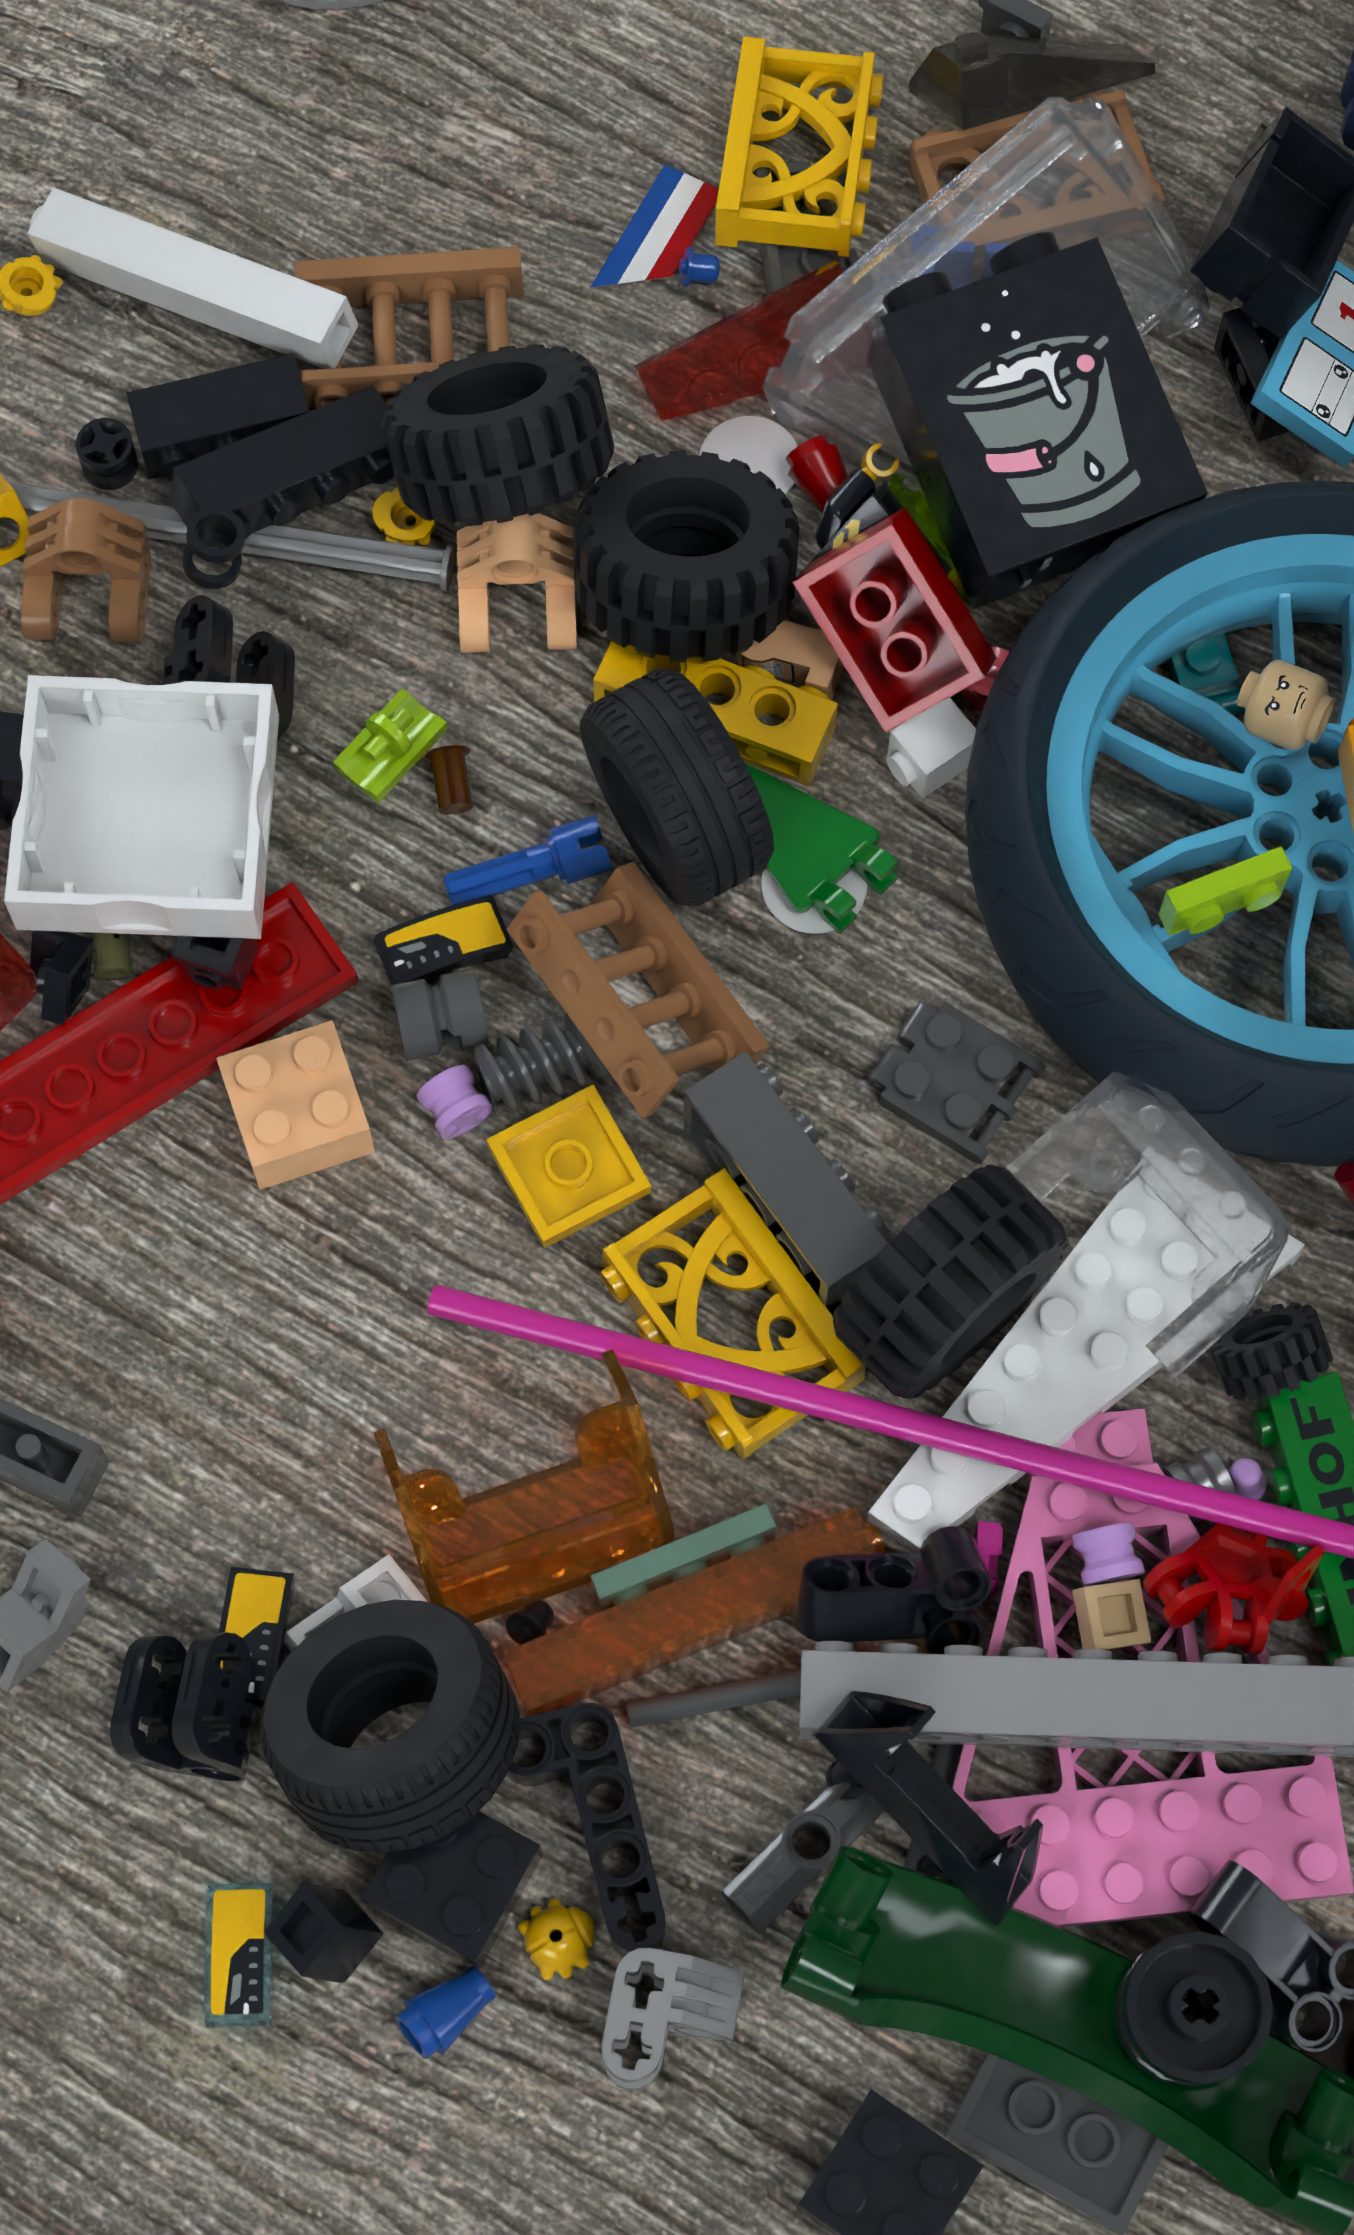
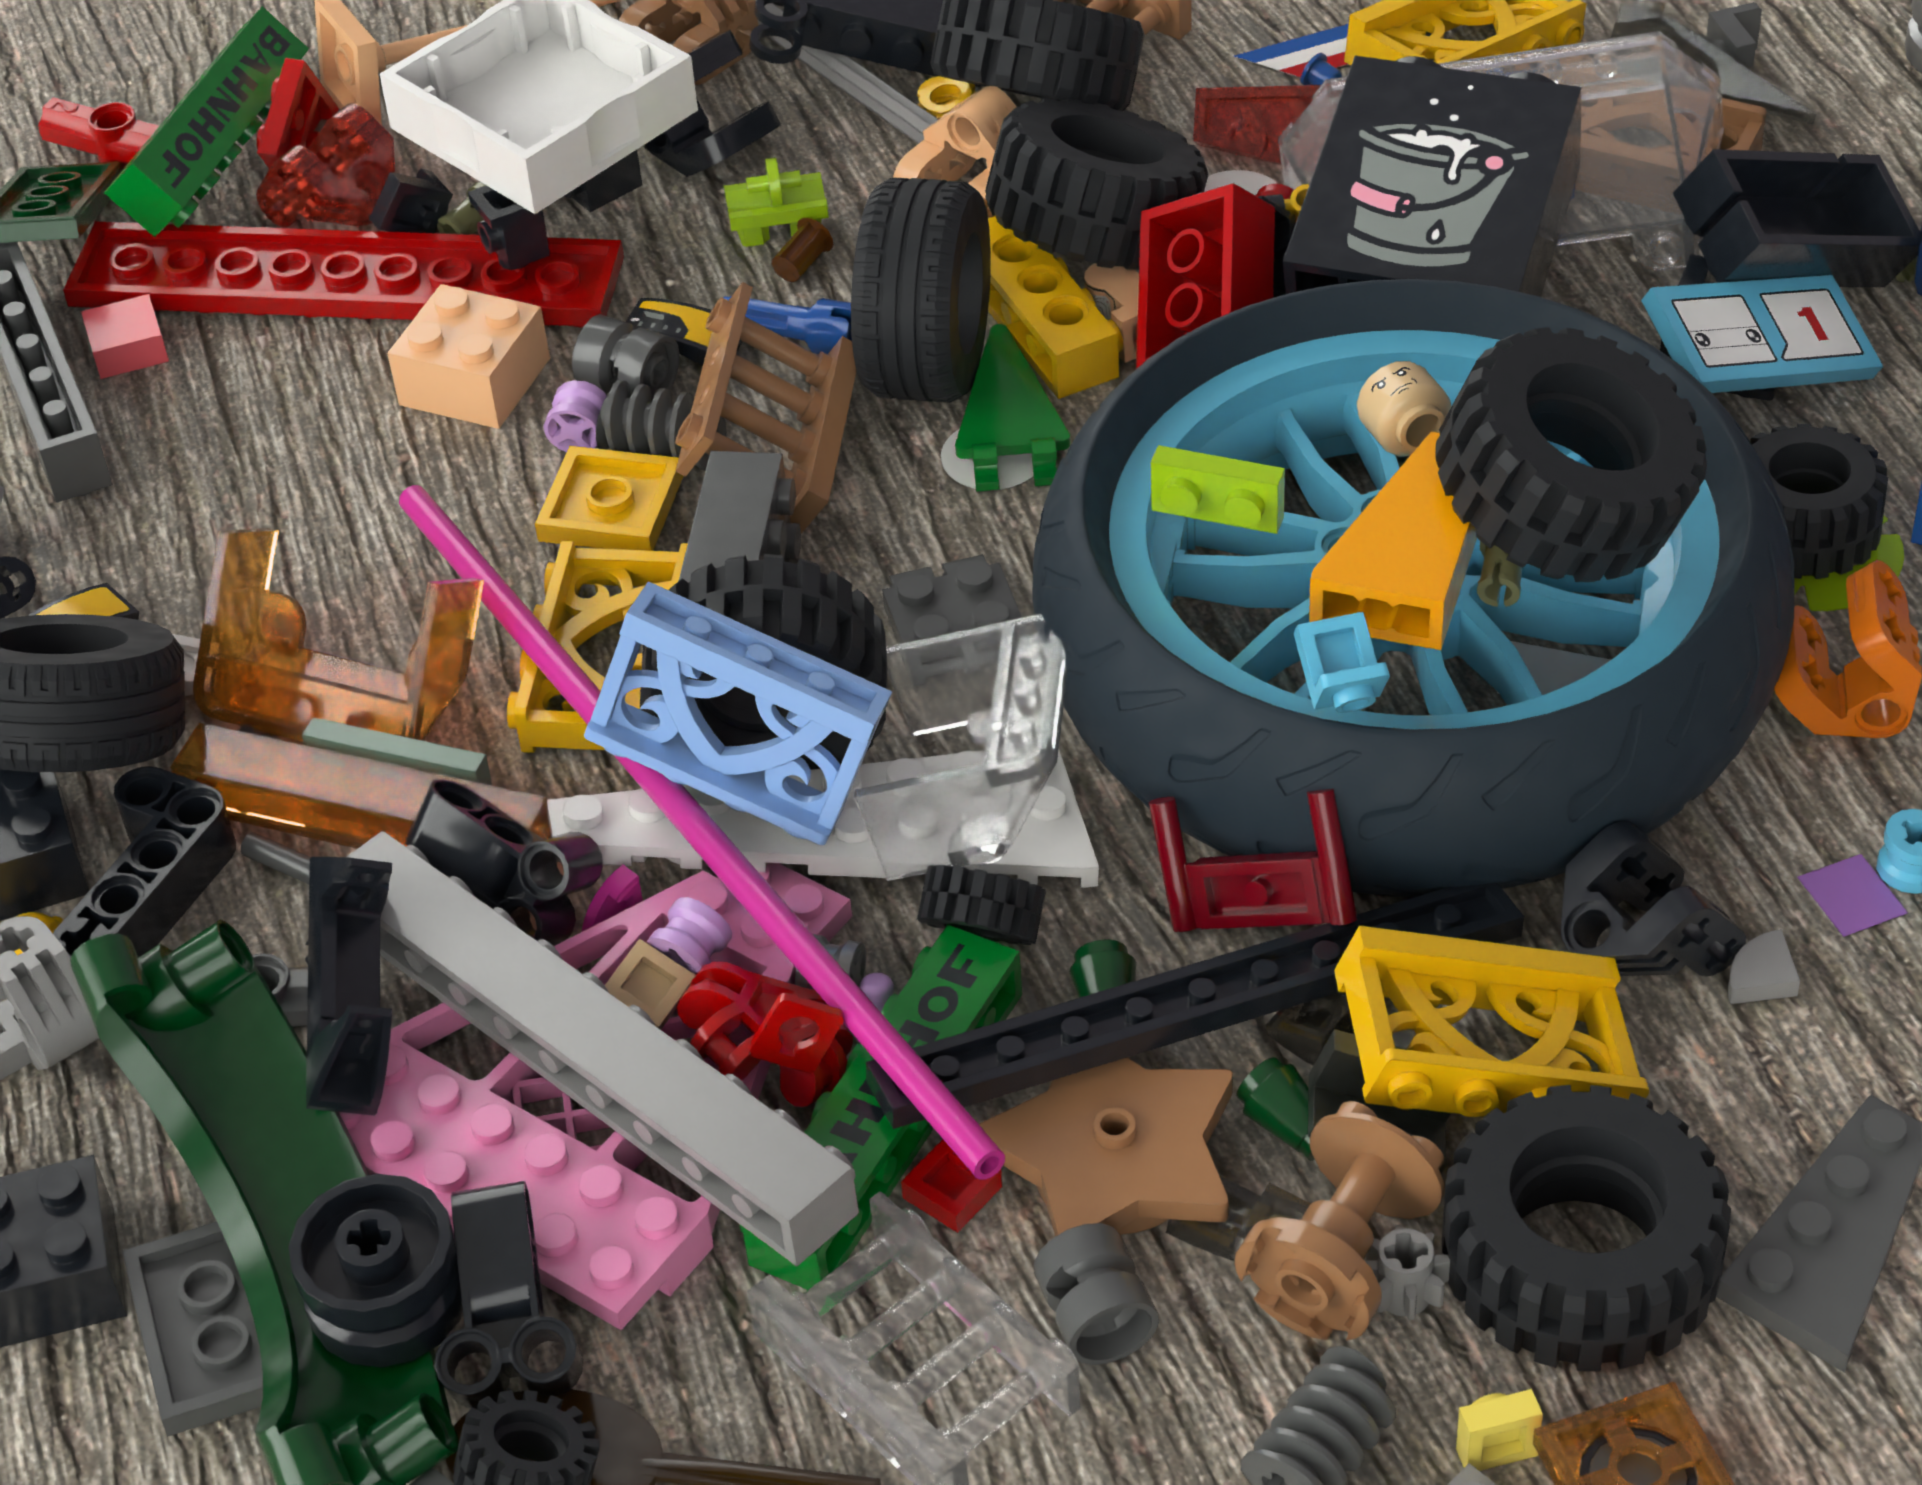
camera: 45 degrees right, 25 degrees down
(1073, 1321) = (688, 751): none -> light blue fence

